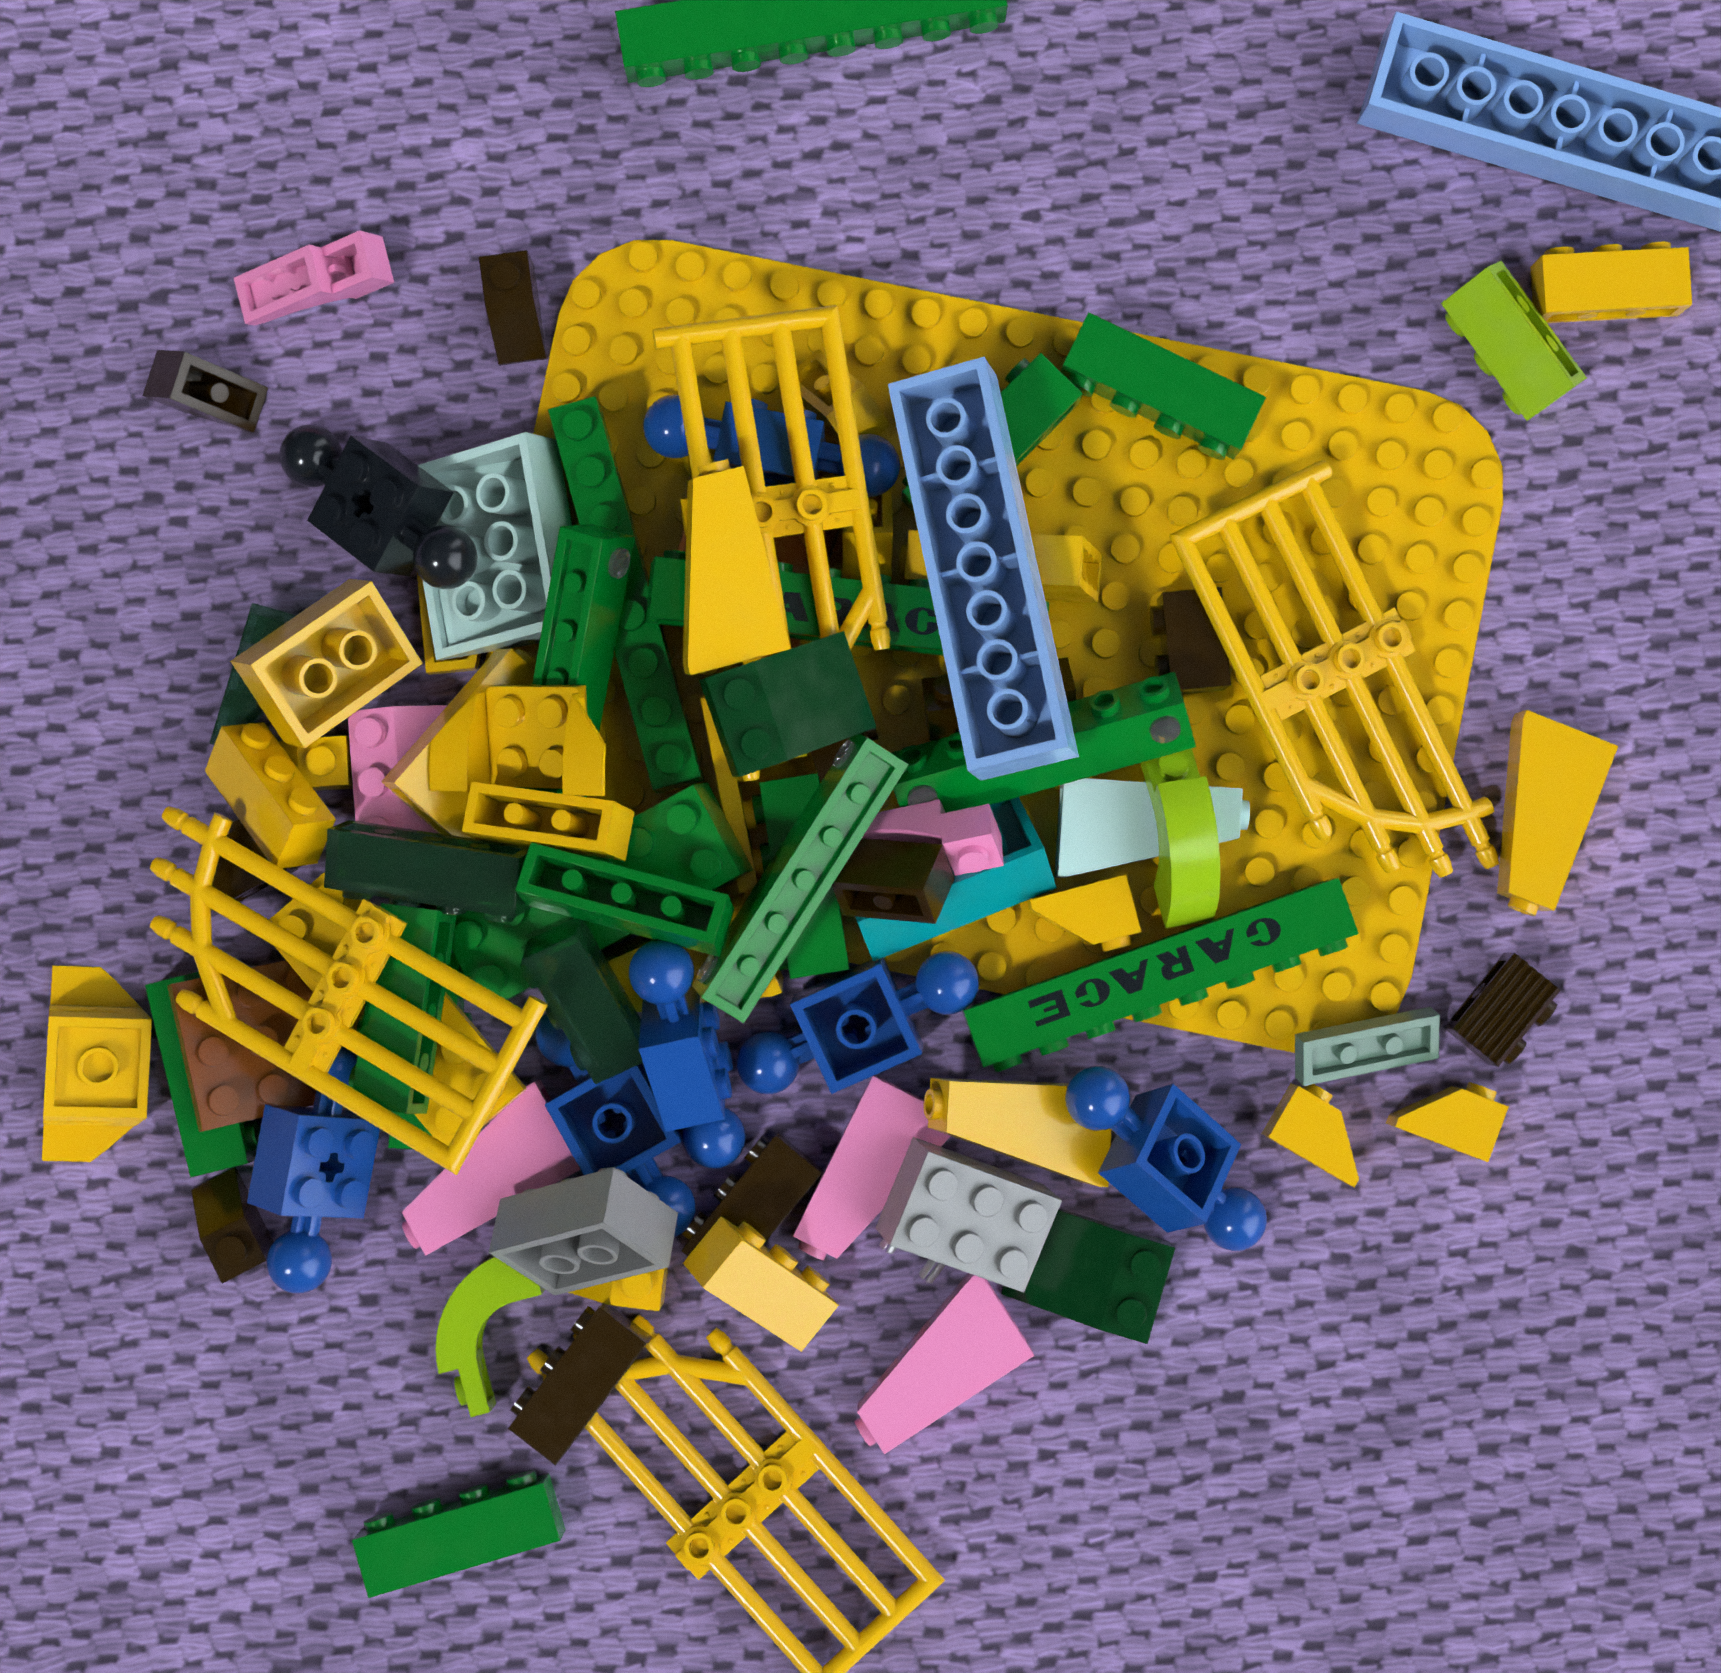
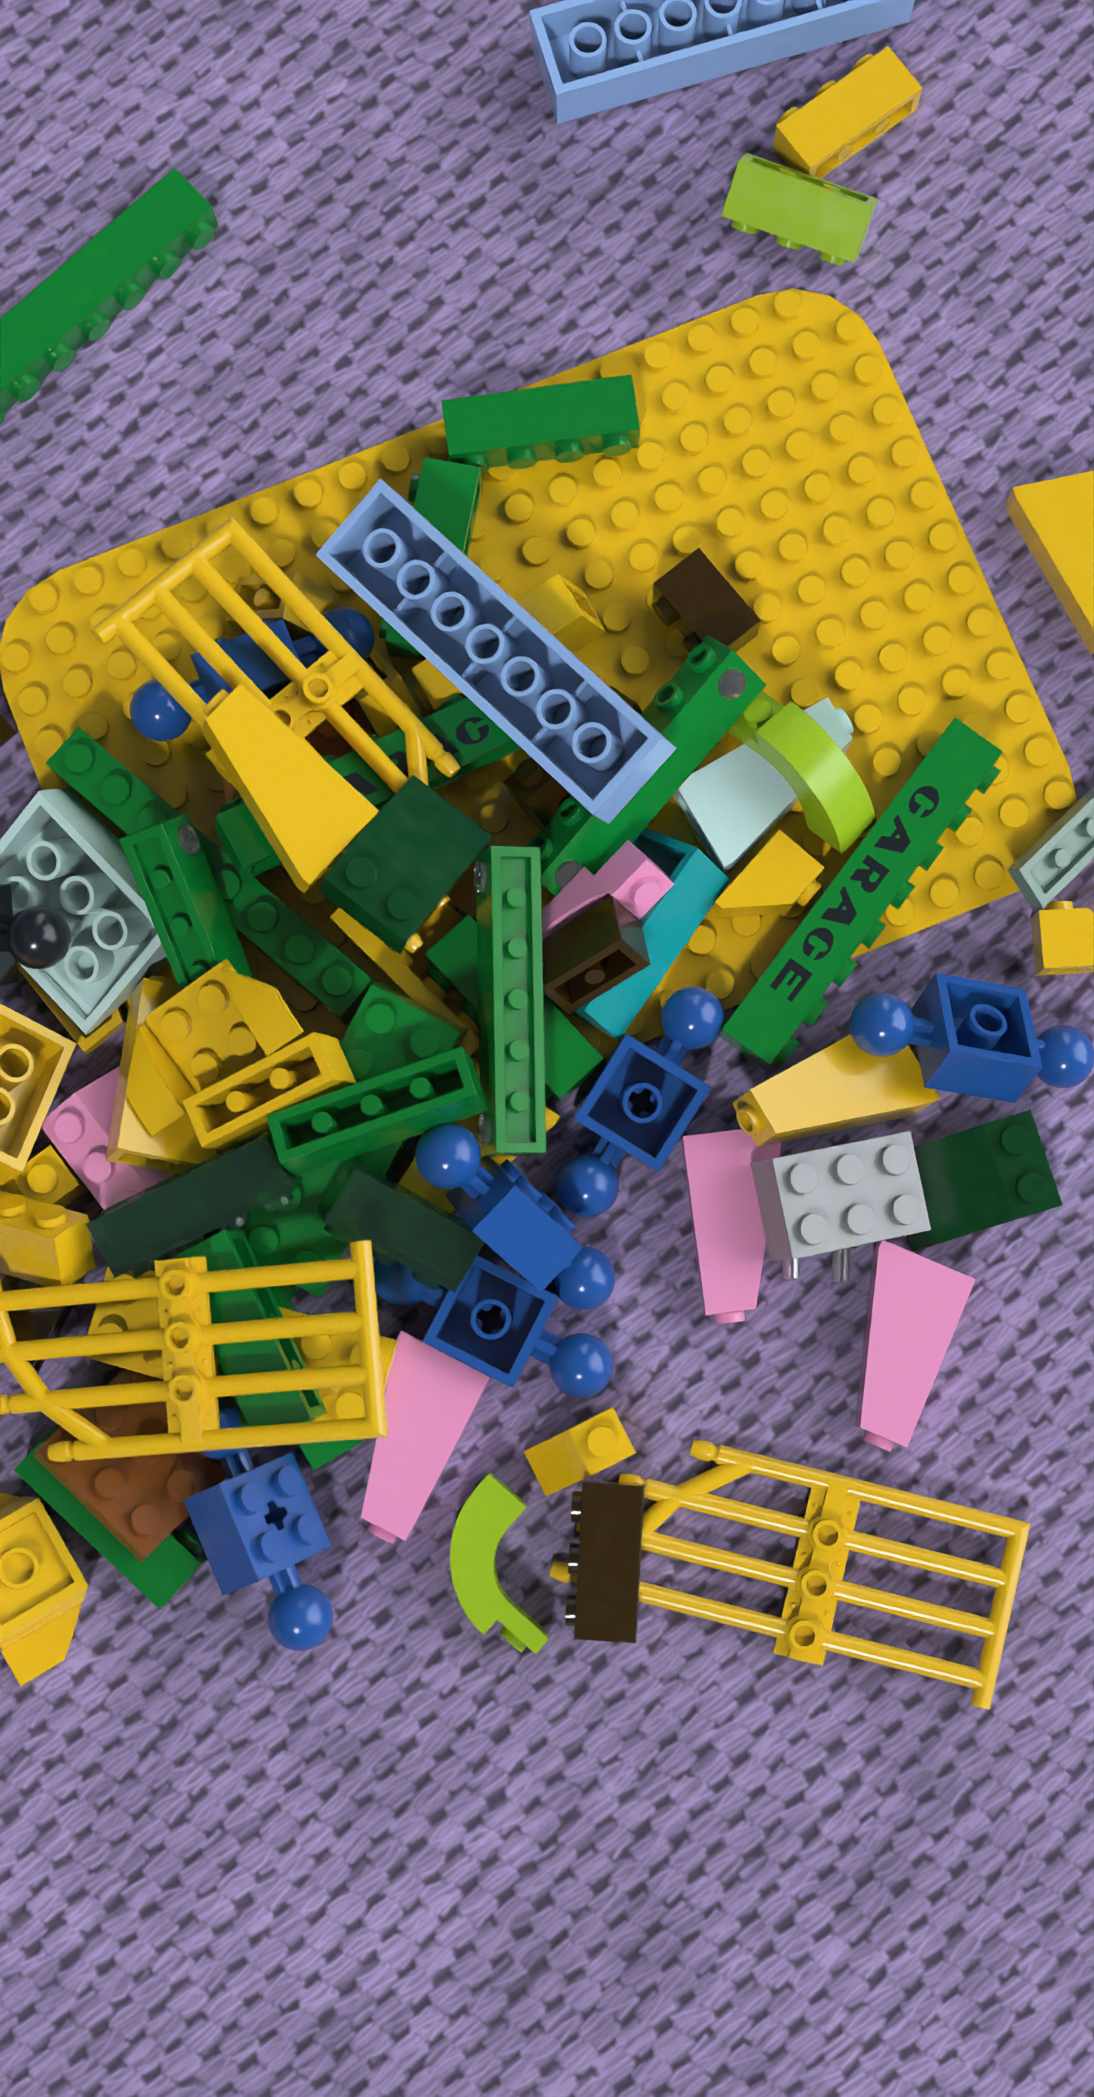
camera: 30 degrees left, 5 degrees down
(230, 1226) = (221, 1631): dark brown slope -> none
(458, 1534) = (591, 1766): green brick -> none
(584, 1231) = (527, 1424): light grey brick -> none
(762, 1282) = (706, 1368): yellow brick -> none
(763, 1193) = (654, 1318): dark brown brick -> none
(1328, 668) = (829, 559): yellow piece -> none

